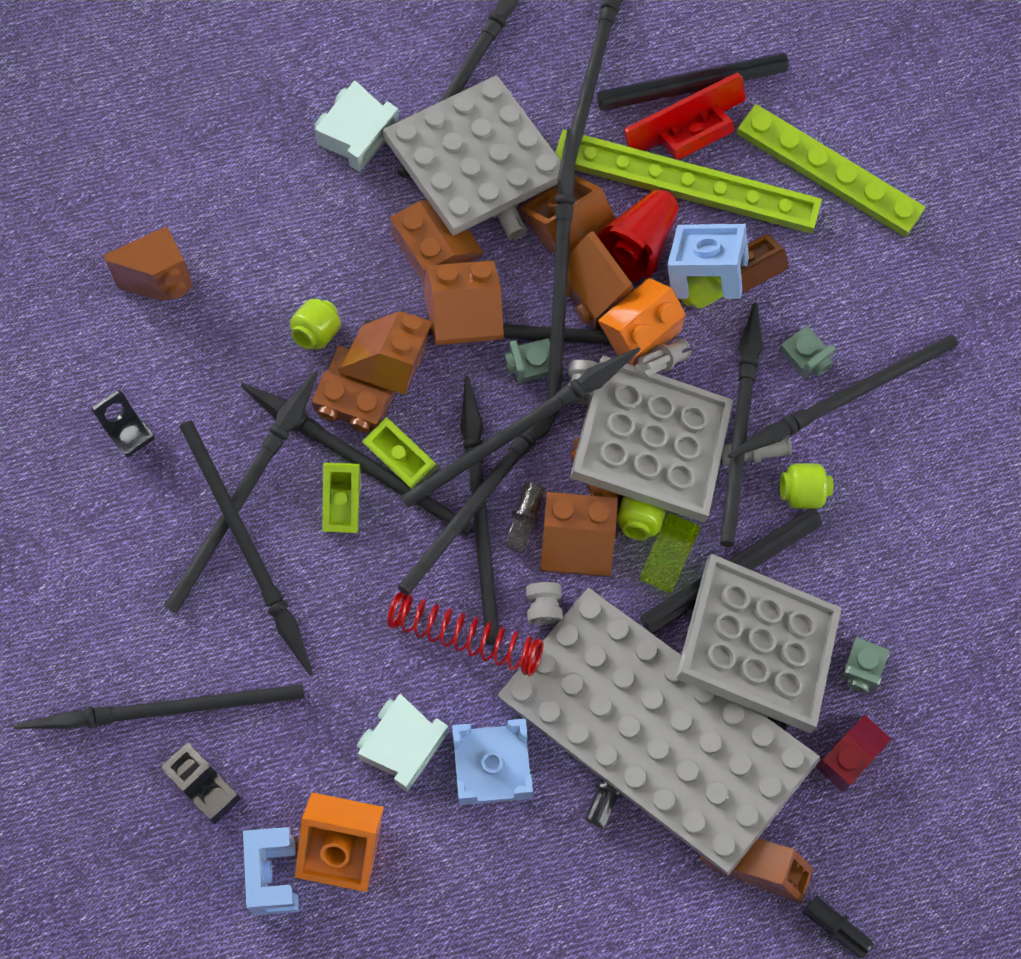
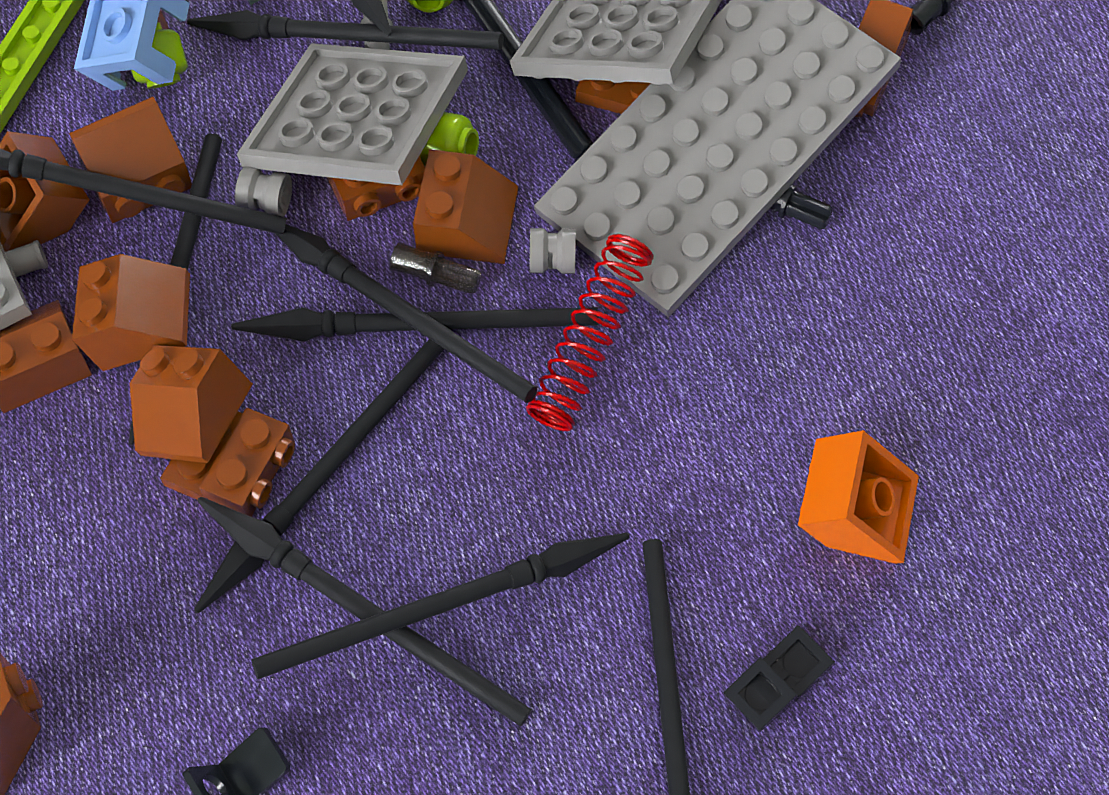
camera: 85 degrees left, 10 degrees down
(258, 871) = (911, 589): light blue panel -> none
(315, 324) = (124, 503): lime head -> none
(341, 497) = (387, 473): lime slope -> none
(400, 453) = (331, 404): lime slope -> none
(402, 742) = (728, 417): light aqua hips -> none
(492, 763) = (755, 321): light blue panel -> none
(528, 360) = (222, 252): sand green bracket -> none
(590, 380) = (272, 157): black piece -> none
(640, 234) = (69, 103): red cone -> none
(644, 319) = (199, 103): orange slope -> none
(663, 357) = (247, 99): light grey axle -> none
(670, 552) = (501, 120): clear neon green slope -> none

